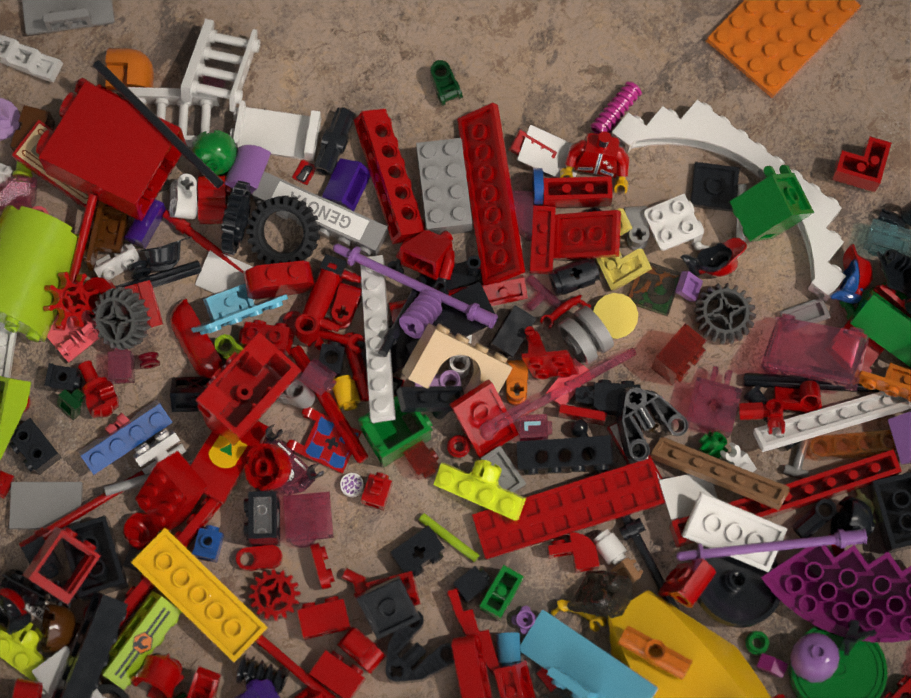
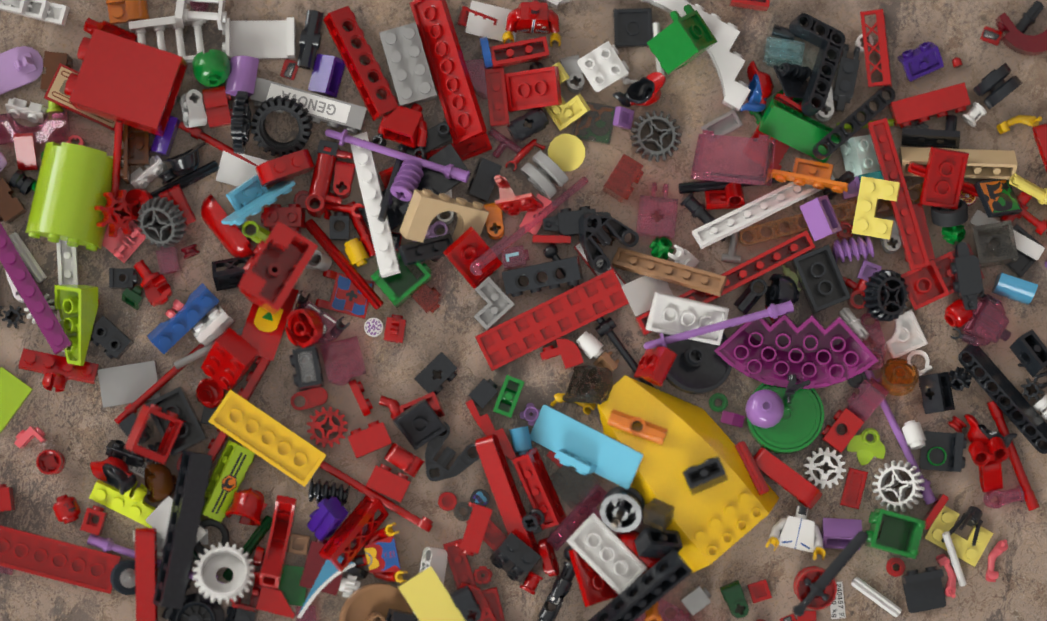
camera: 15 degrees left, 10 degrees up
(158, 124) = (162, 56): black piece -> none
(212, 551) = (269, 401): blue brick -> none
(318, 377) = (332, 245): clear pink brick -> none
(450, 538) = (459, 357): lime bar -> none
(458, 439) = (450, 277): red plate -> none
(481, 487) = (478, 314): neon yellow plate -> none
(771, 410) = (705, 213): red bar -> none

